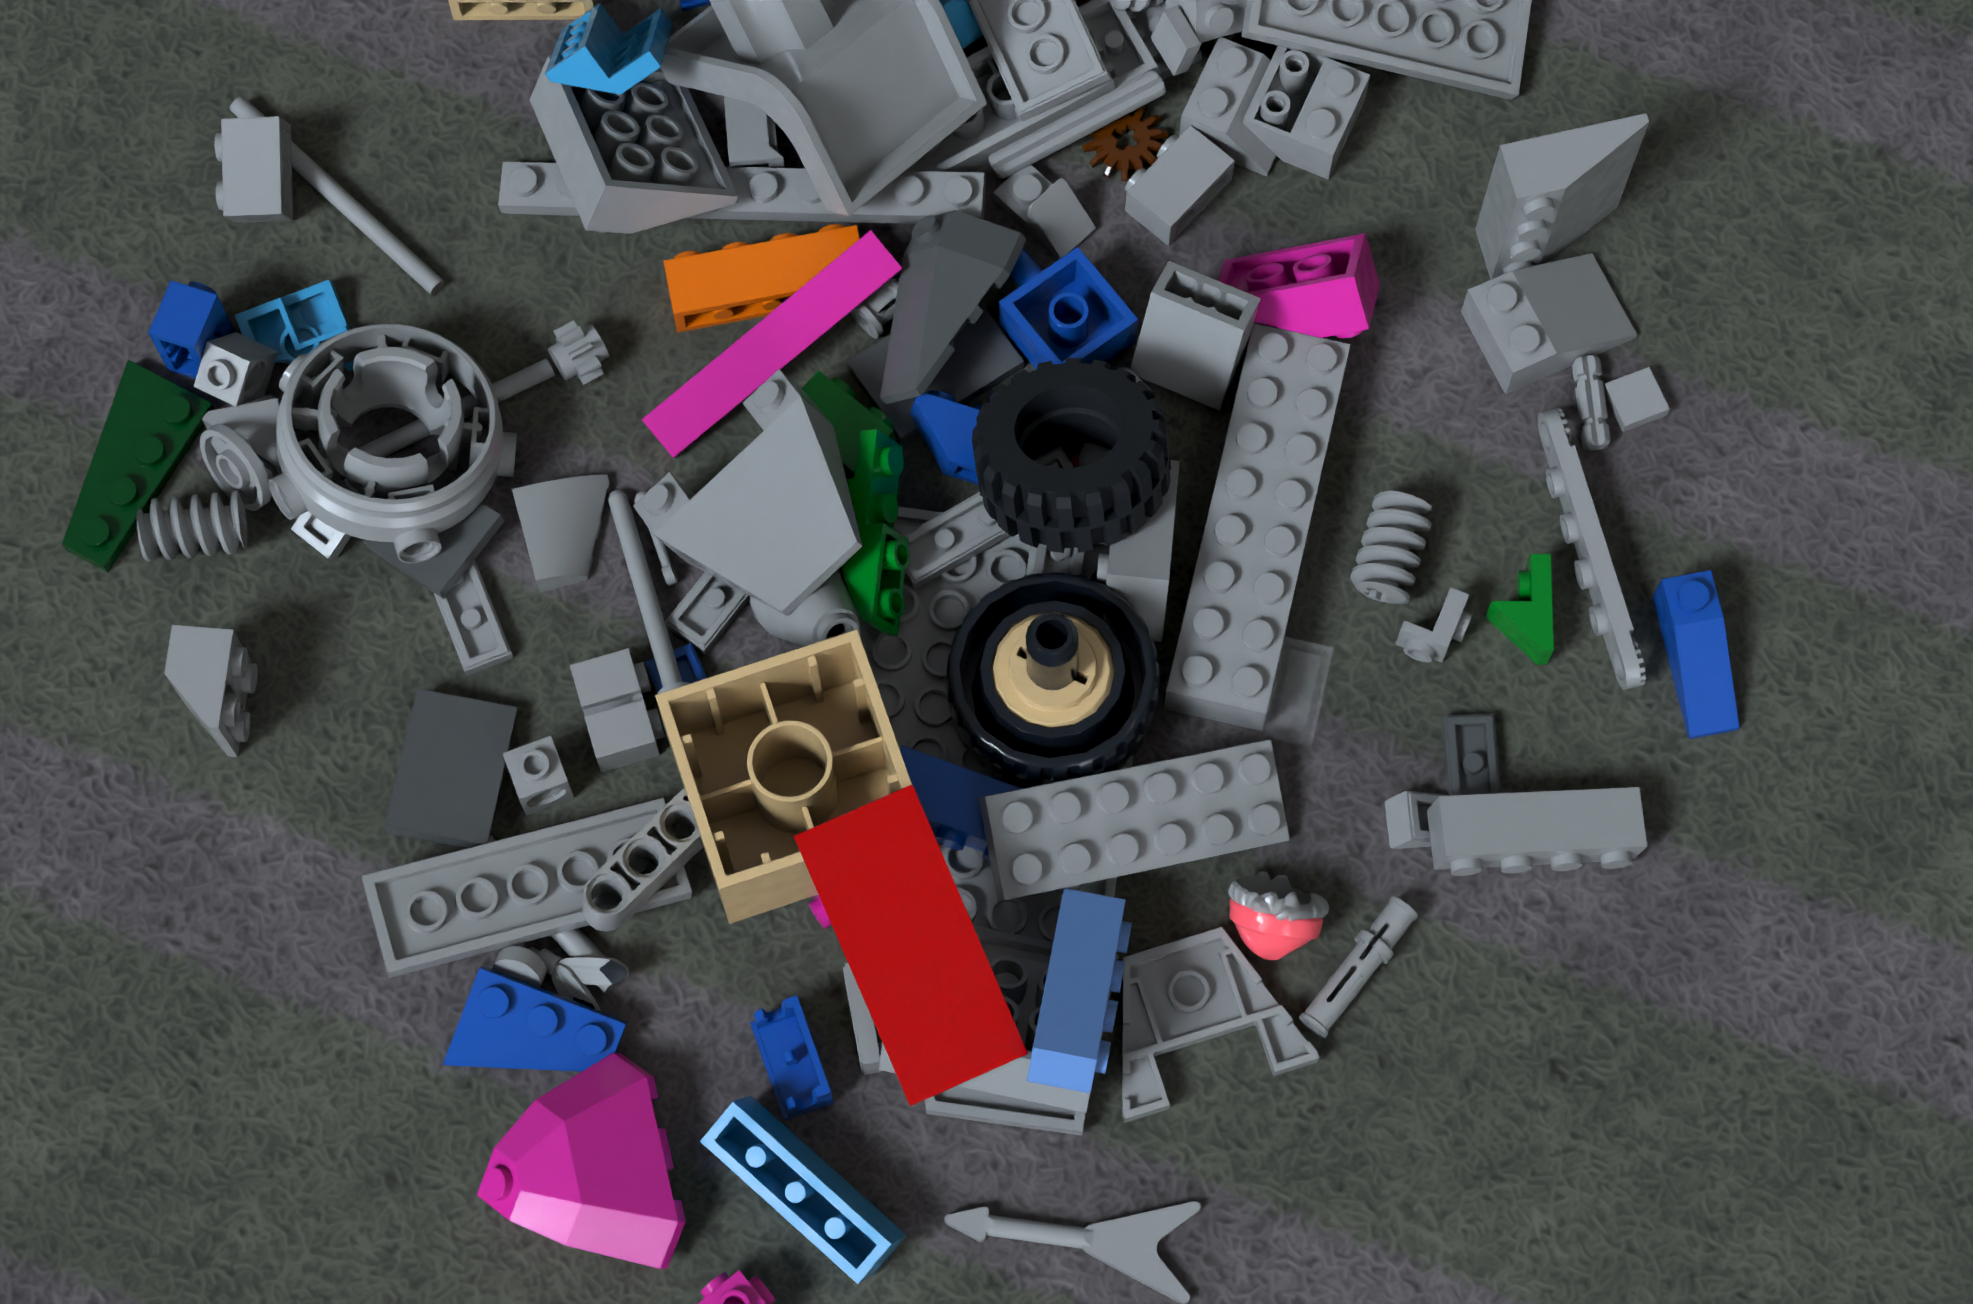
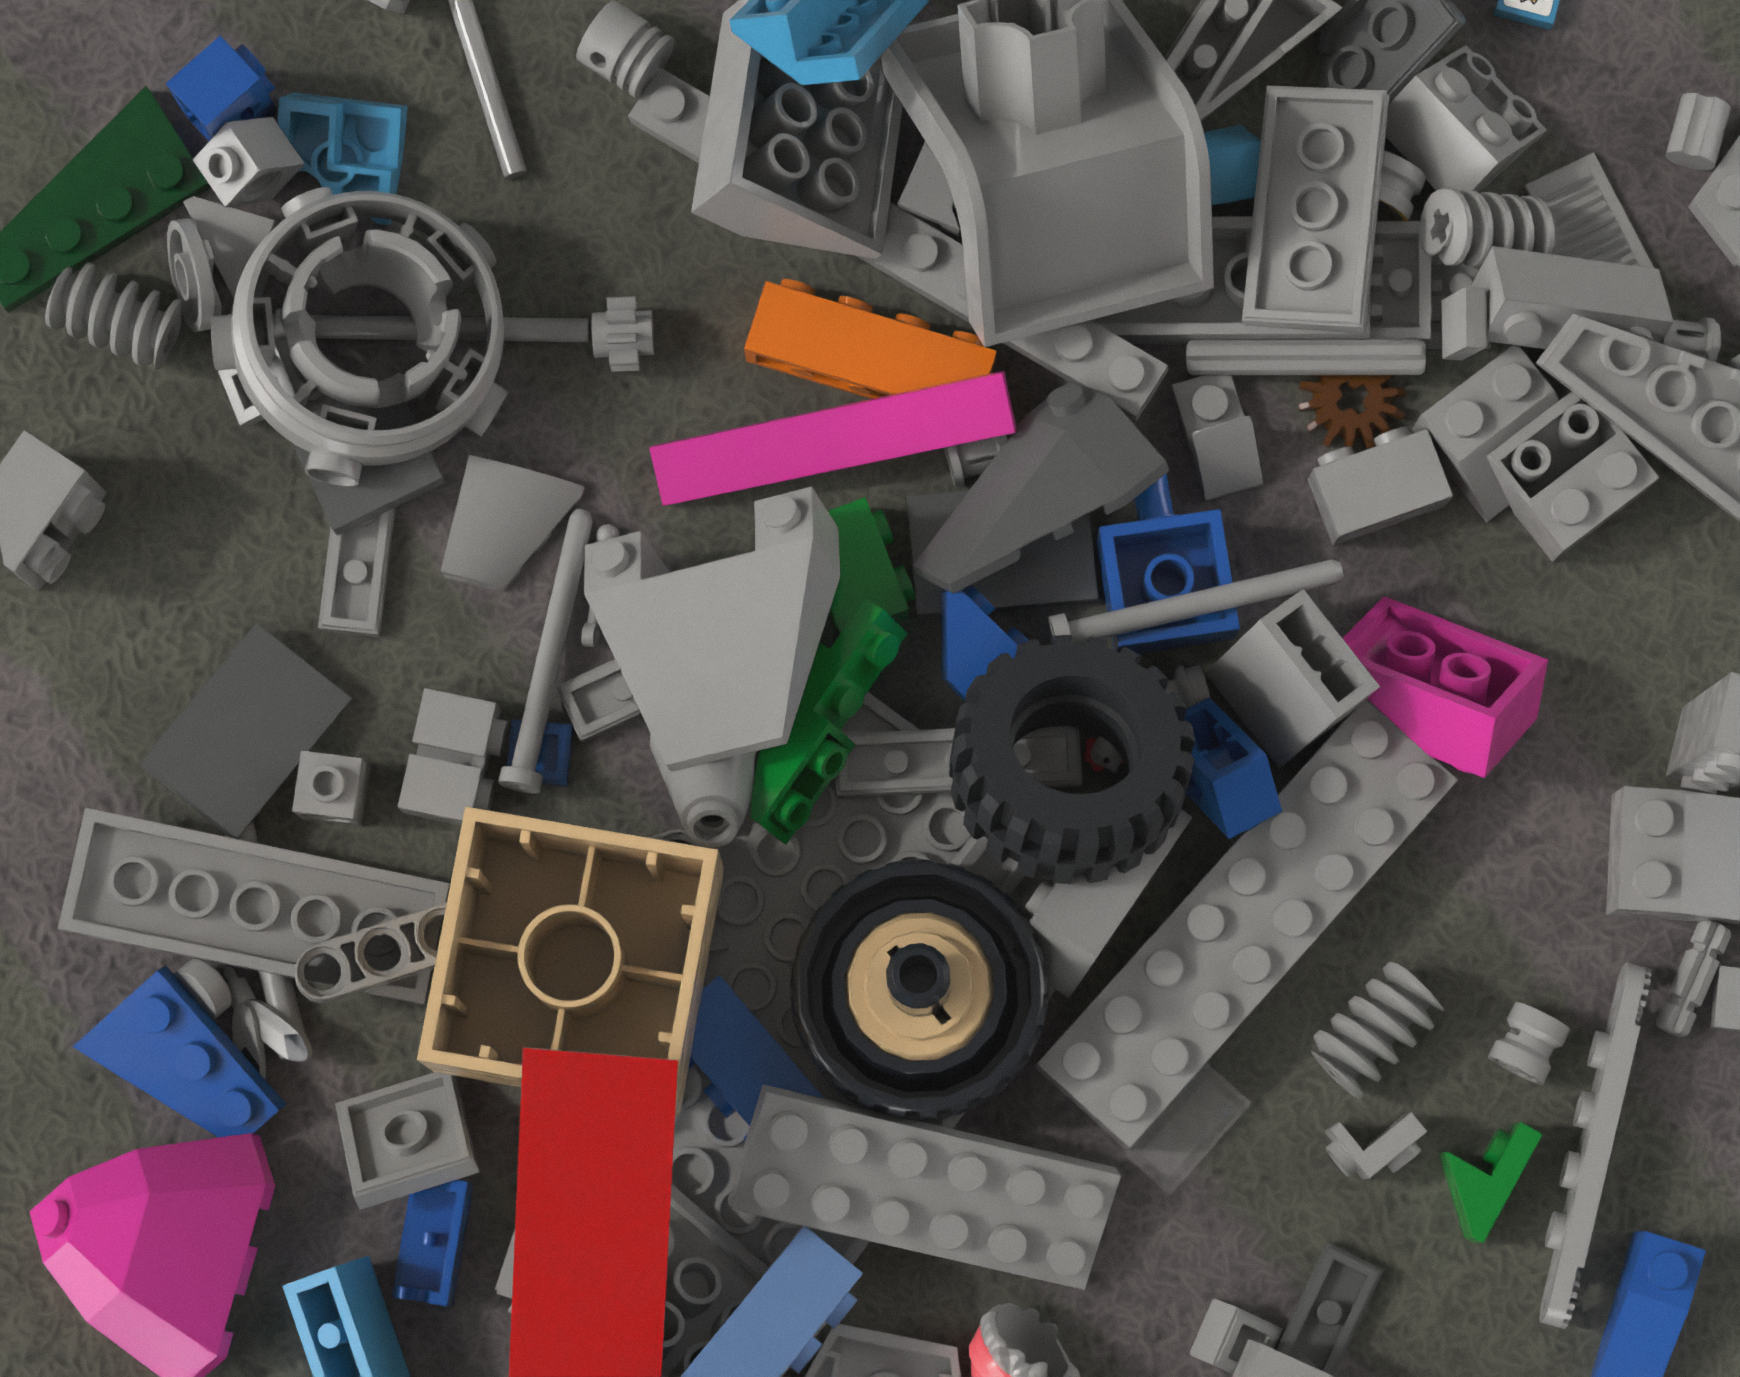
camera: 30 degrees right, 10 degrees up
(470, 159) = (624, 48): none -> light grey piece
(732, 992) = (406, 1138): none -> light grey tile
(1105, 308) = (1198, 602): none -> light grey bar
(1195, 420) = (1229, 772): none -> blue brick
(1504, 503) = (1529, 1043): none -> light grey wheel

